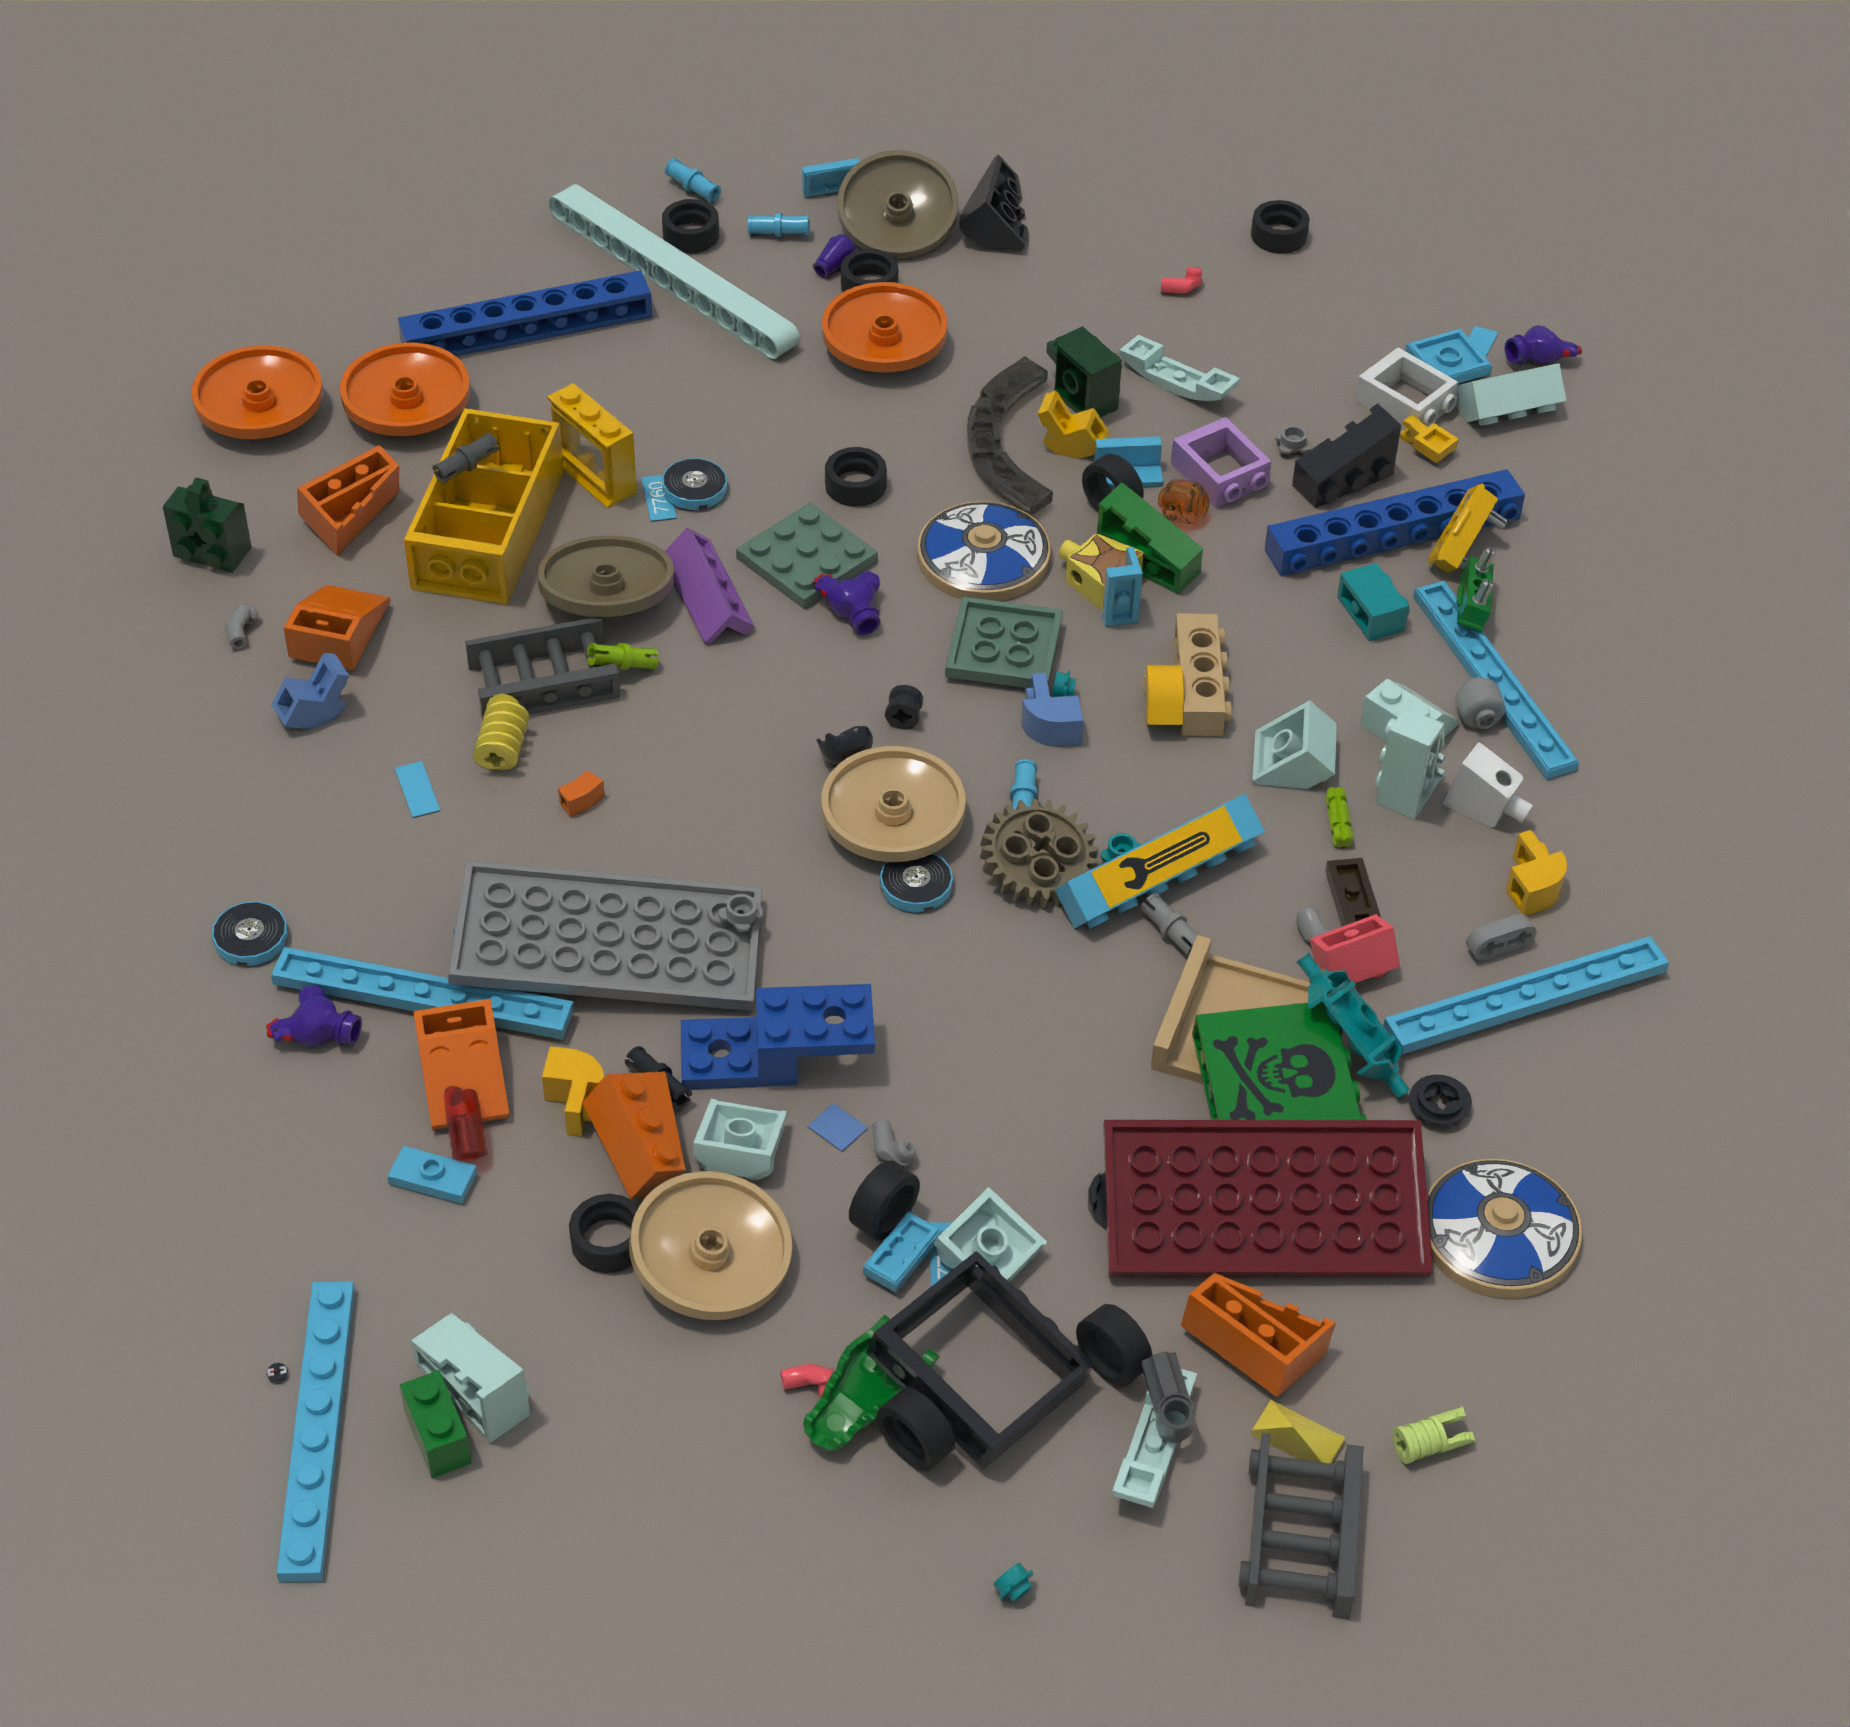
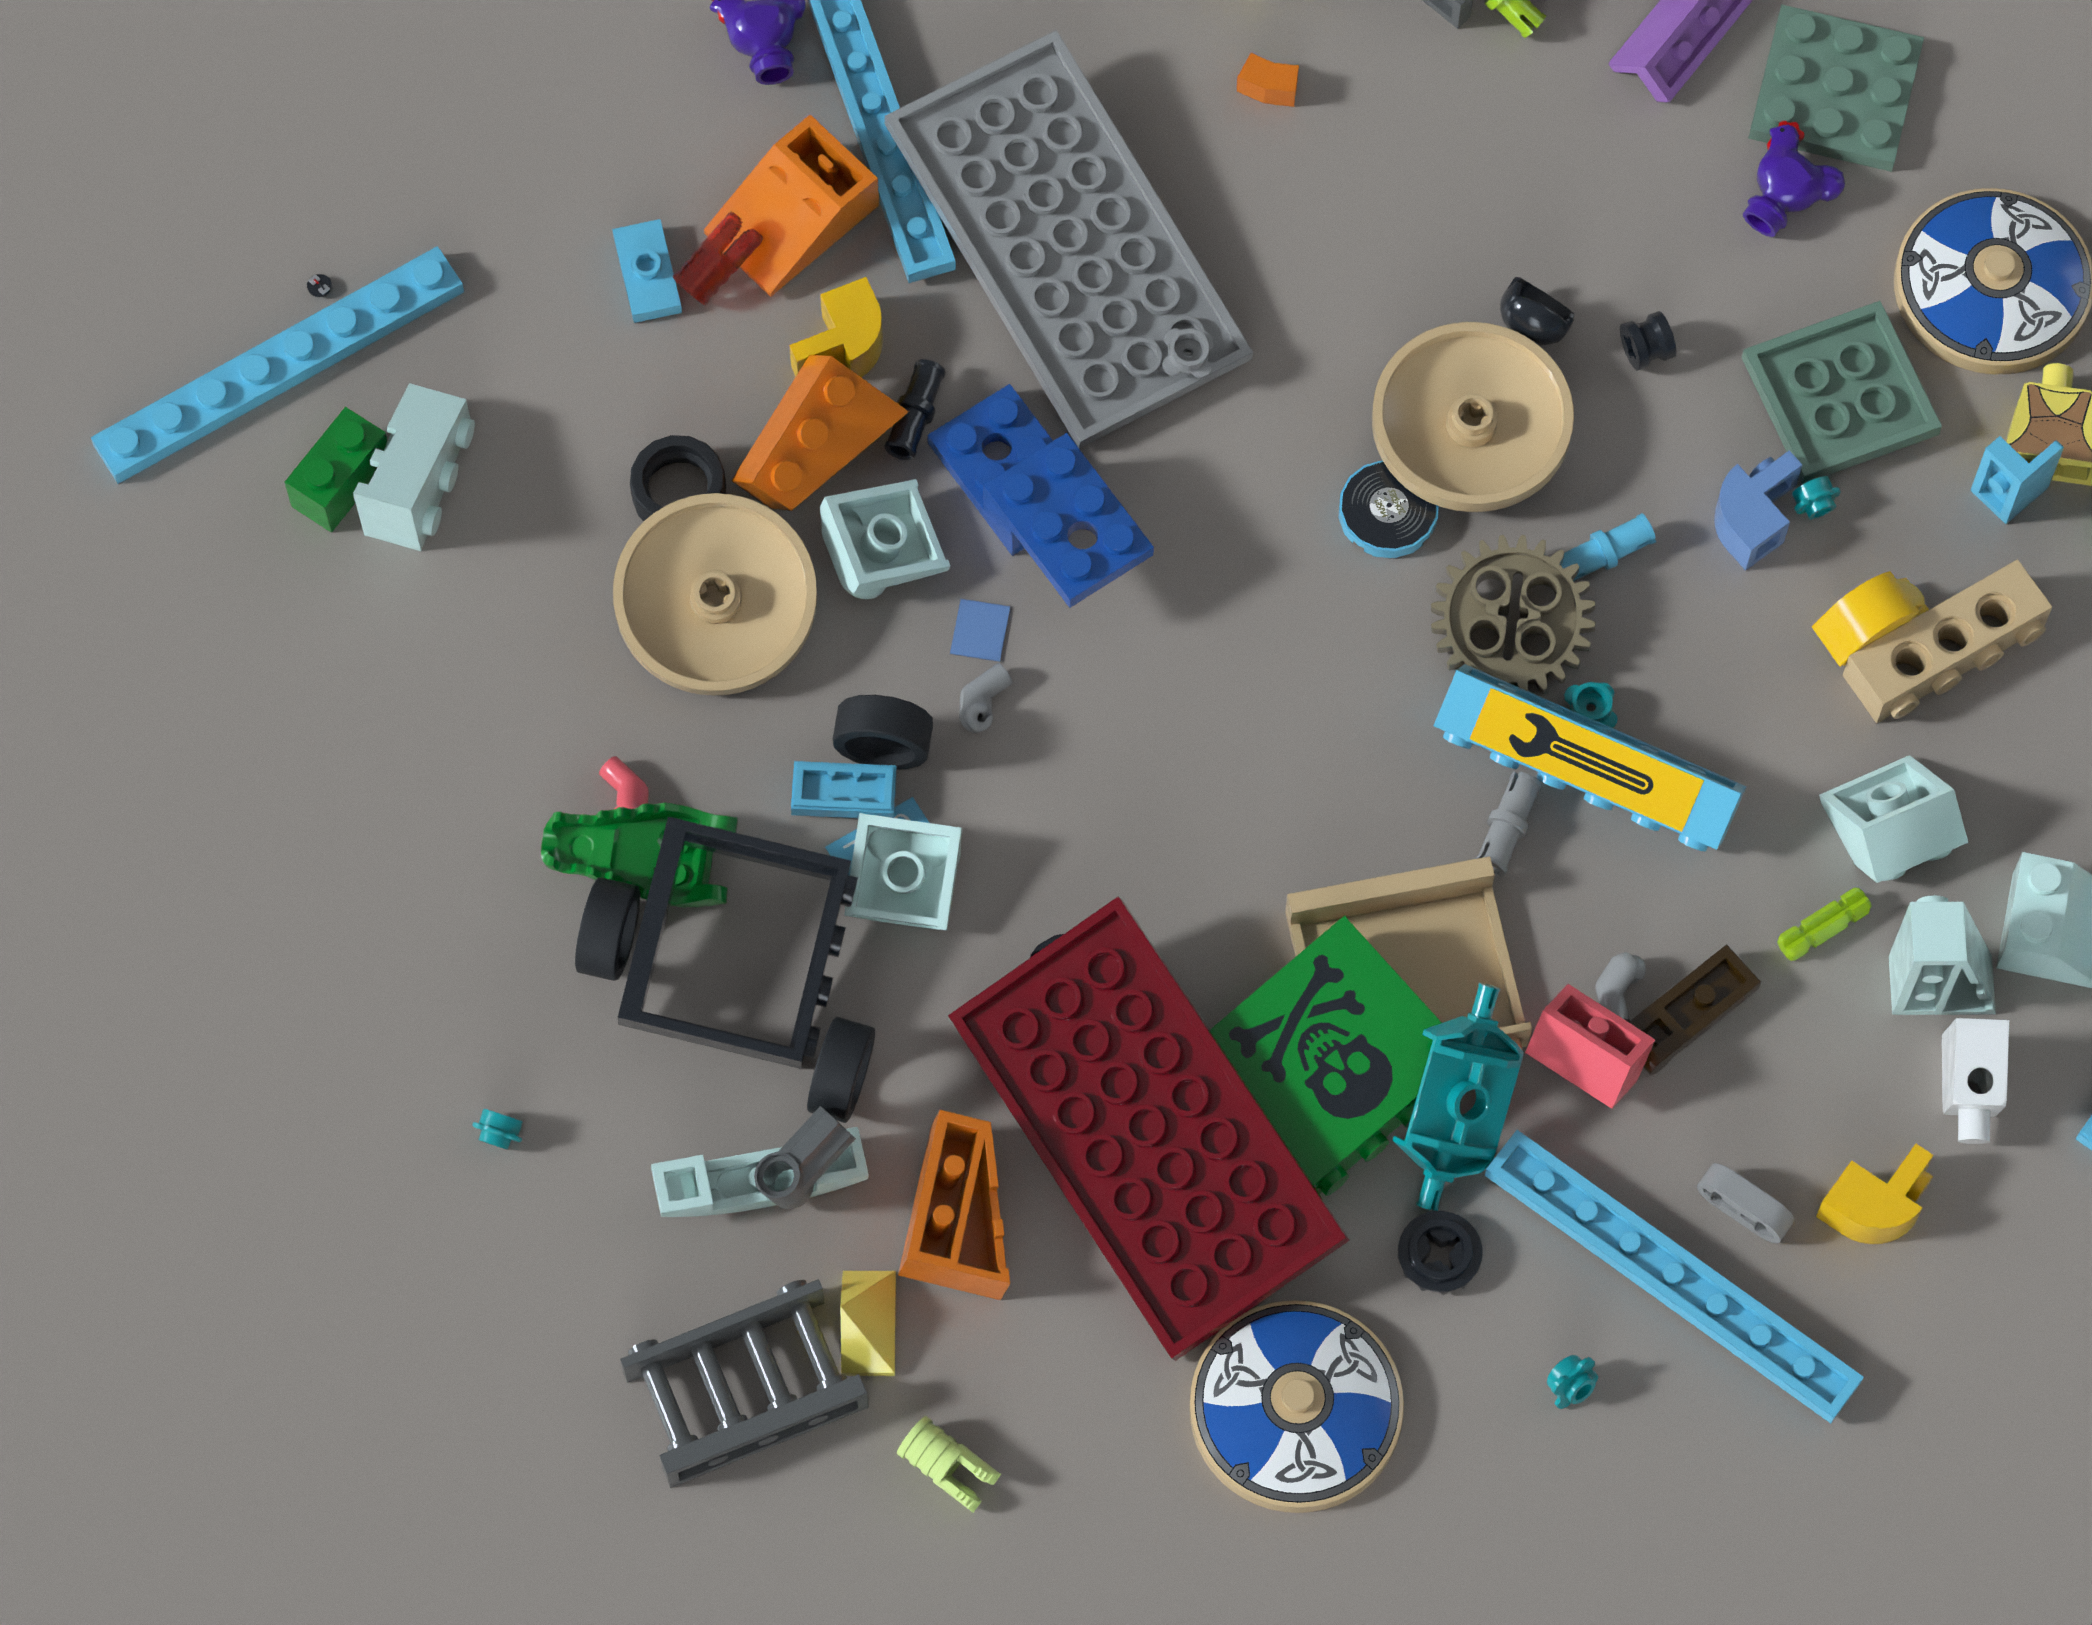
camera: 60 degrees right, 20 degrees up
(851, 460) = (2017, 29): black tyre -> none
(1569, 1075) = (1572, 1380): none -> teal plate

